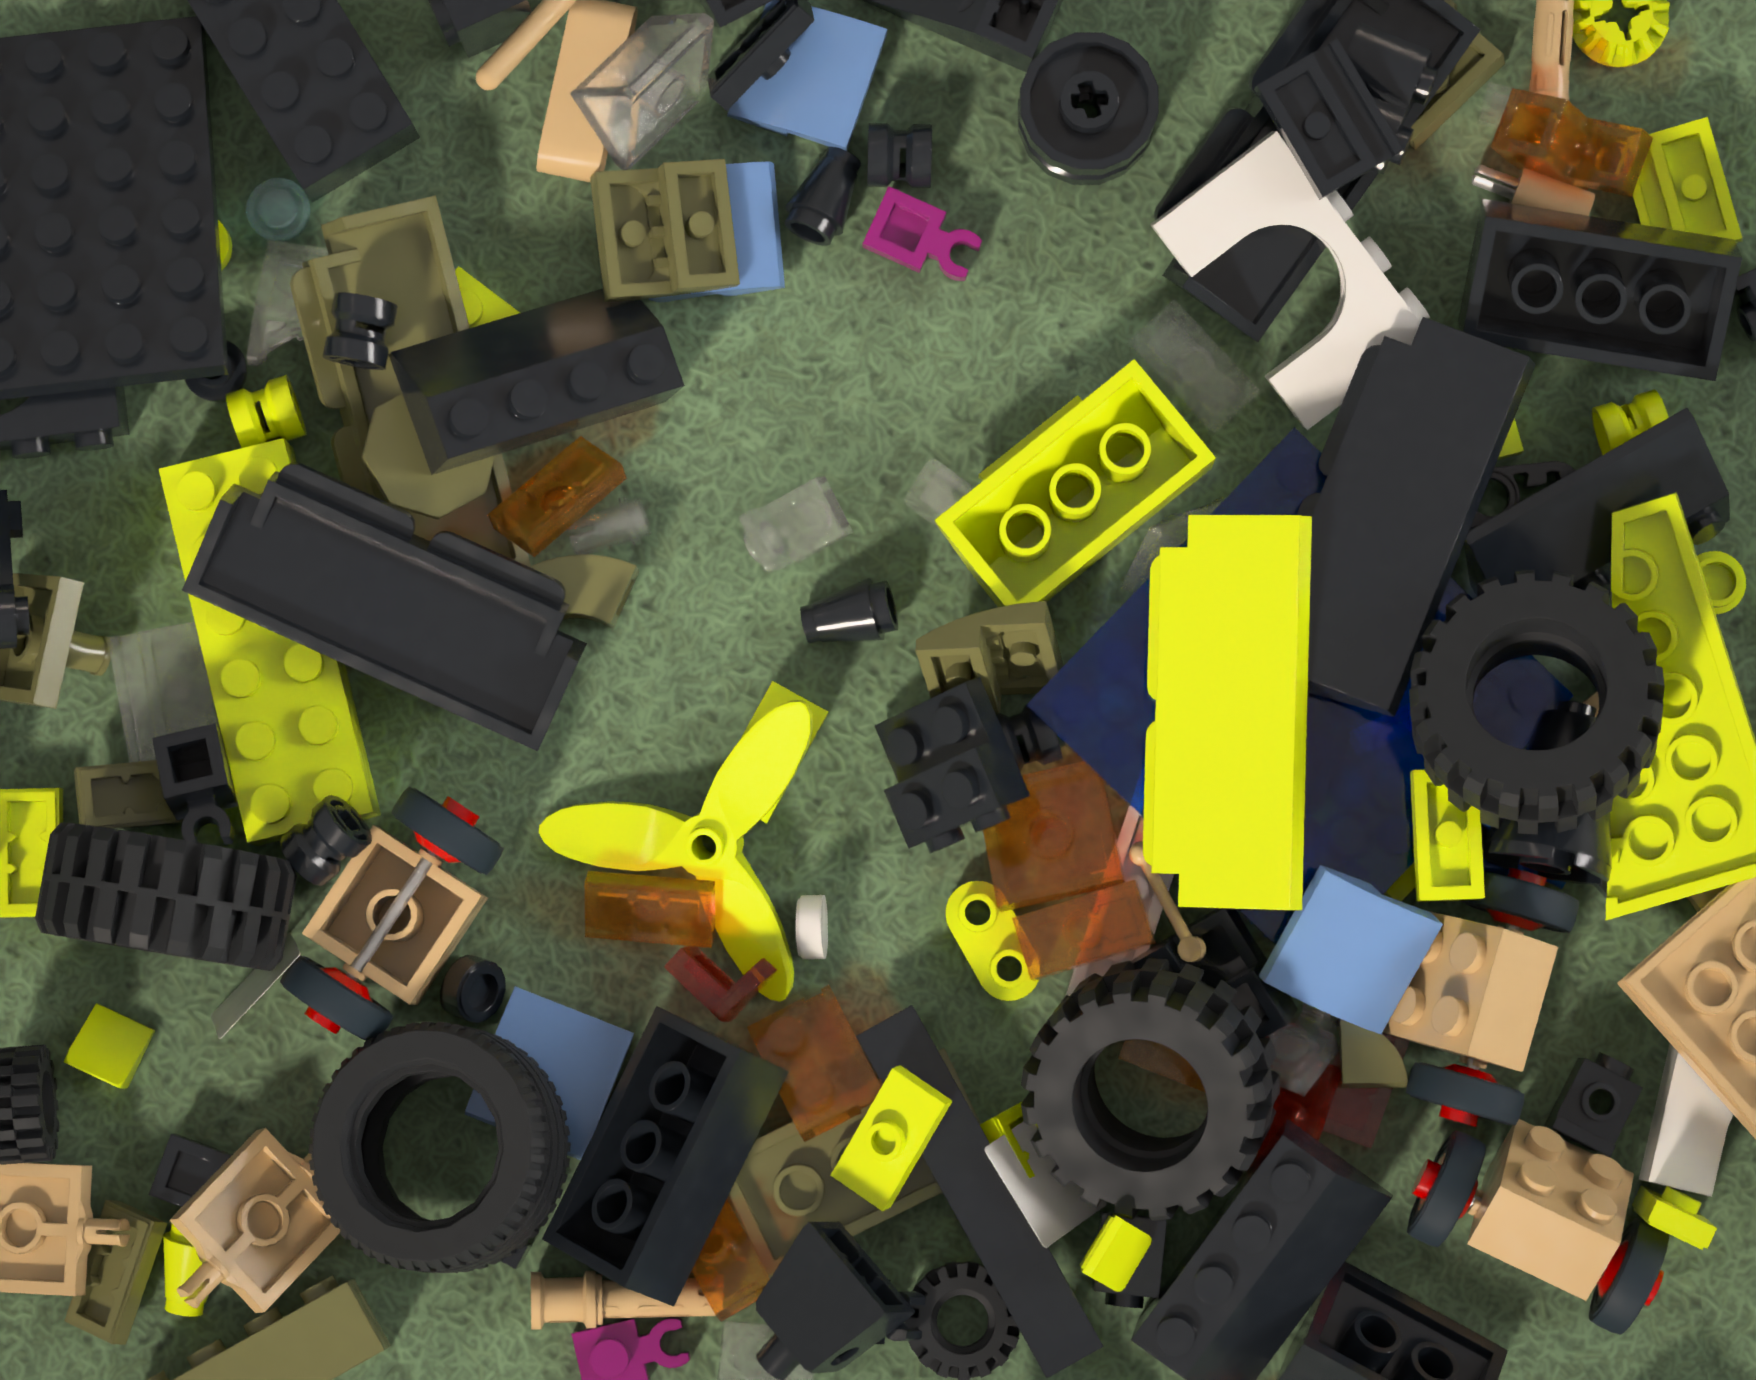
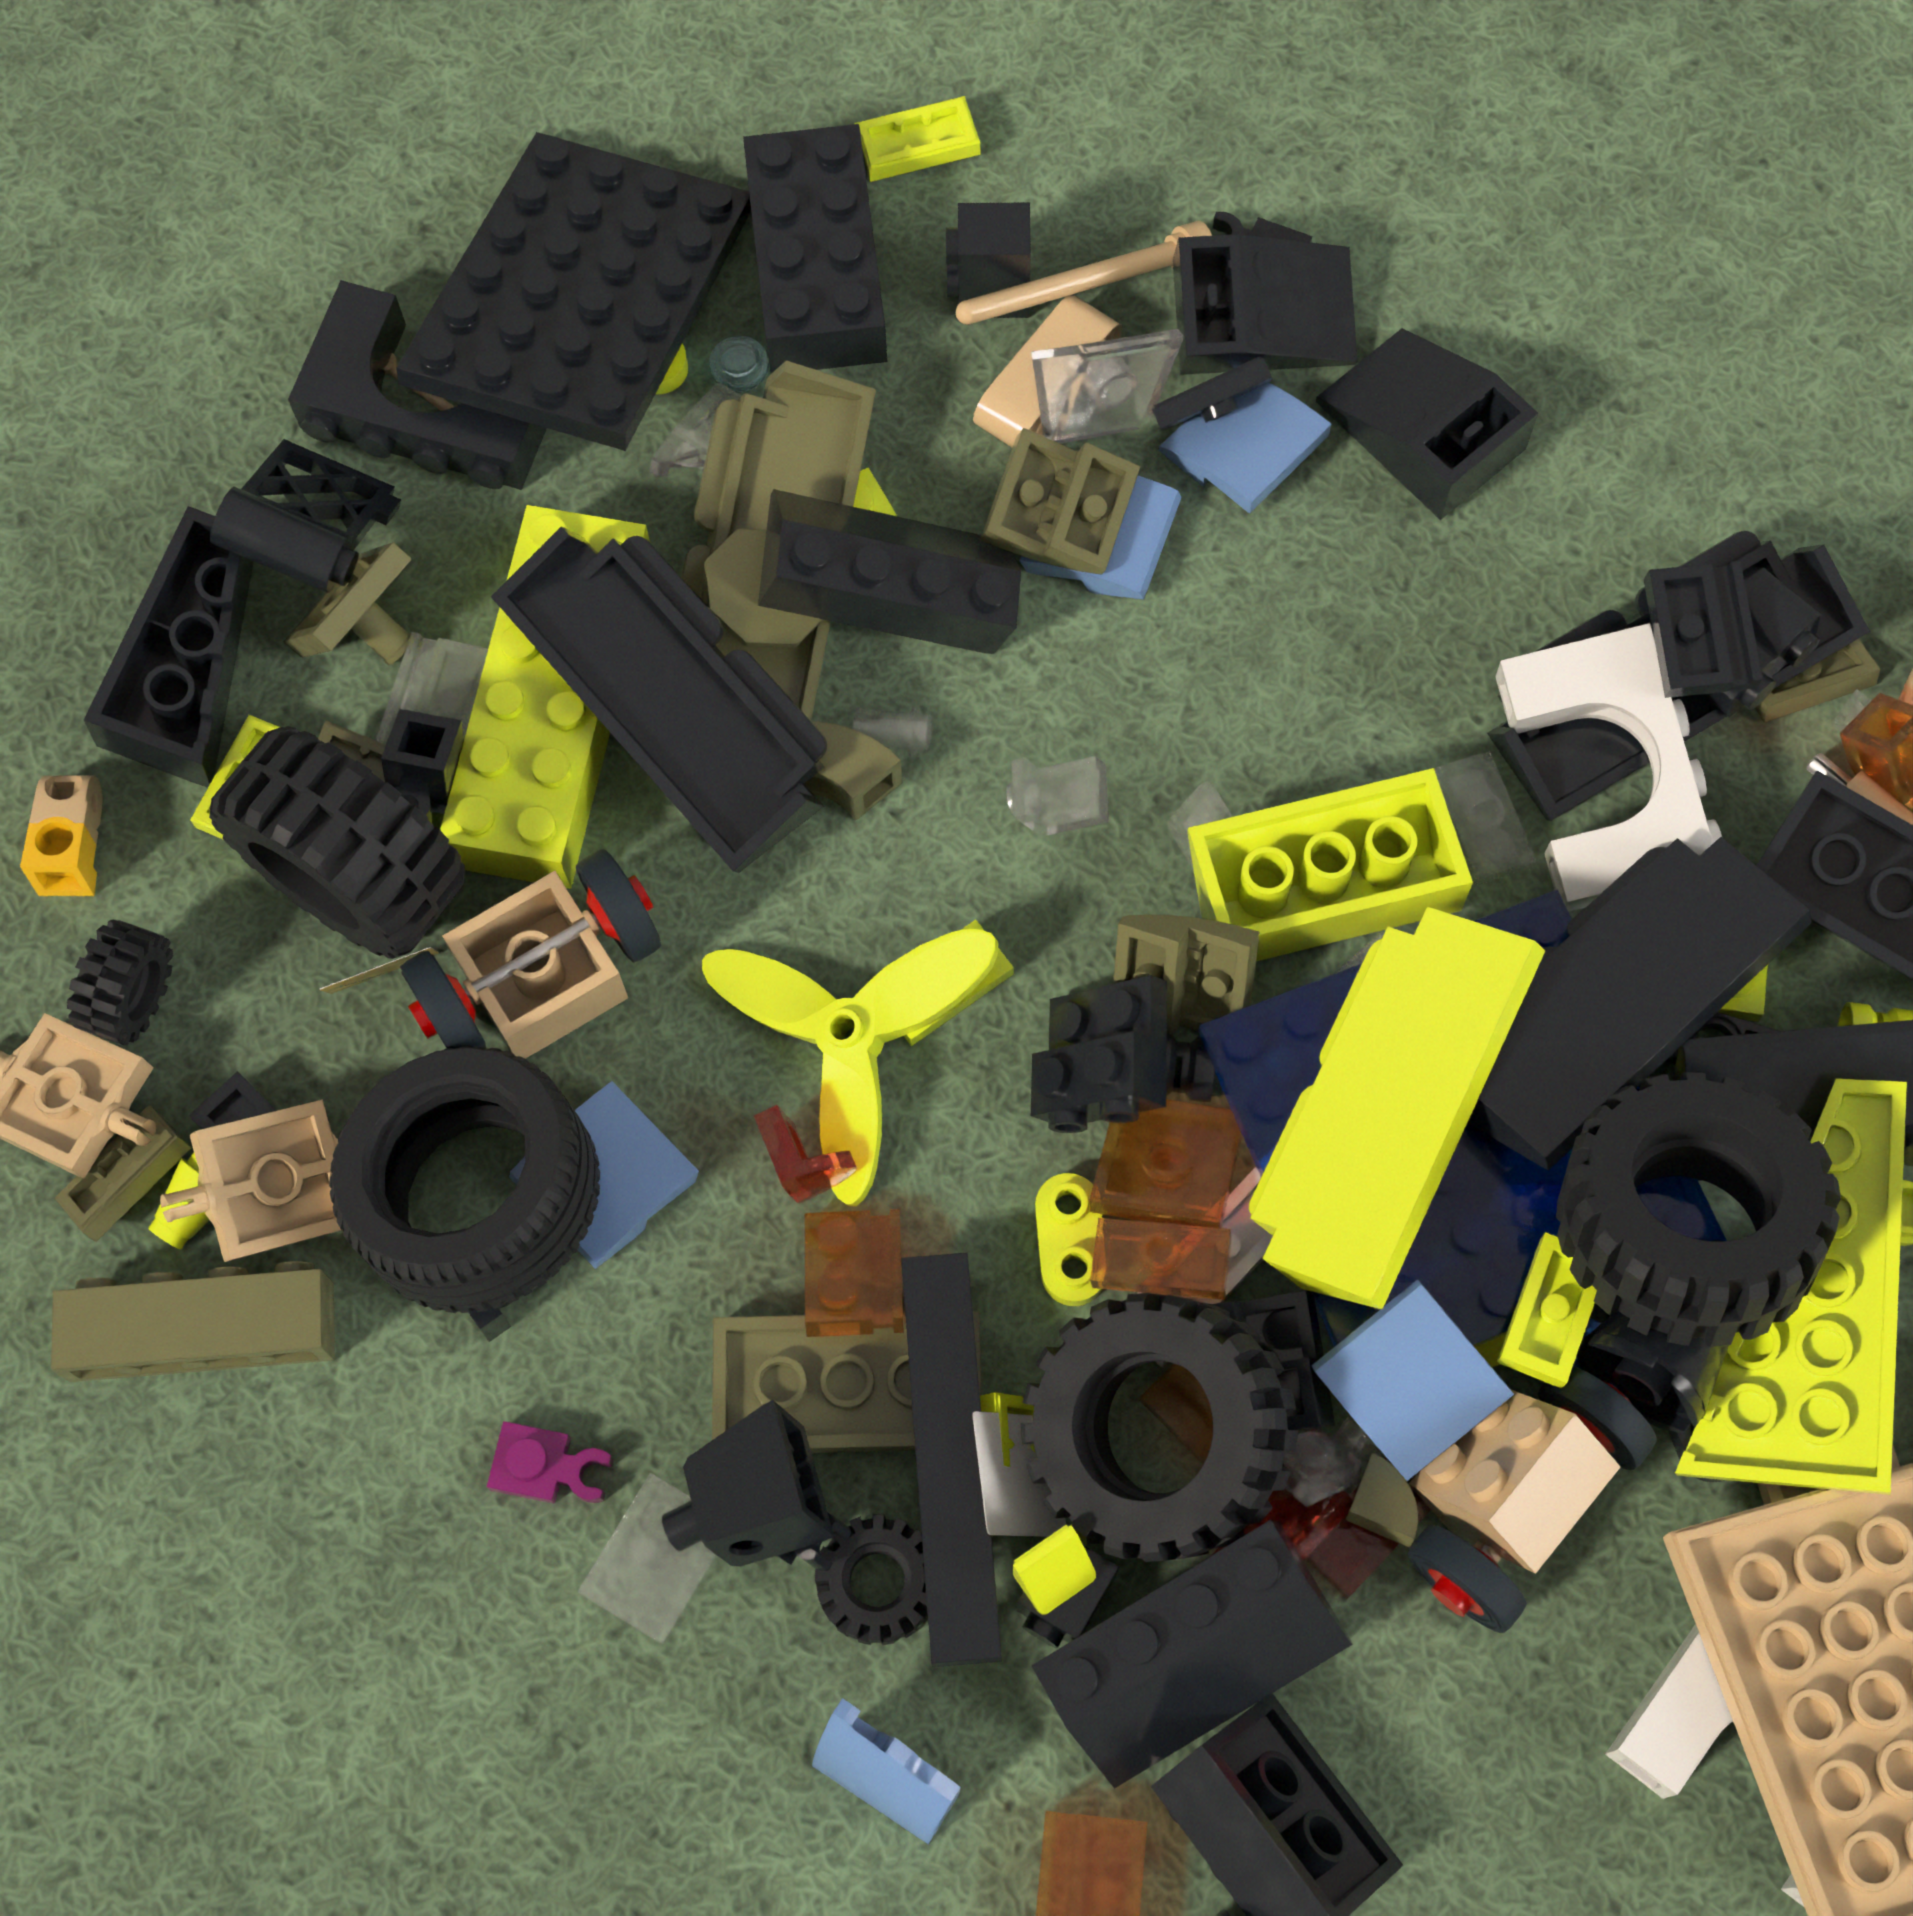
camera: 25 degrees right, 15 degrees down
(109, 1046) = (228, 977): neon yellow slope -> none
(216, 389) = (622, 478): black plate -> none
(279, 409) = (652, 507): neon yellow wheel -> none
(328, 838) = (504, 861): black wheel -> none
(360, 331) = (755, 462): black wheel -> none
(473, 988) = (575, 1065): black tile -> none
(557, 496) = (859, 679): clear orange plate -> none
(593, 1299) = (540, 1397): tan pin -> none
(649, 909) = (767, 1066): clear orange plate -> none
(664, 1156) = (671, 1285): black brick -> none
(729, 1267) = (676, 1401): clear orange plate -> none
(812, 927) = (908, 1148): white tile -> none
(824, 197) = (1211, 542): black cone -> none
(851, 614) = (1075, 892): black cone -> none
(884, 155) = (1282, 528): black wheel -> none
(891, 1138) = (889, 1364): neon yellow plate -> none
(911, 231) = (1279, 600): magenta plate -> none
(1095, 72) = (1481, 558): black wheel -> none
(1190, 947) = (1256, 1313): tan hinge -> none
(1548, 1215) = (1505, 1737): tan brick -> none
(1572, 1114) = (1572, 1668): black brick -> none
(1675, 1215) = (1632, 1796): neon yellow plate -> none

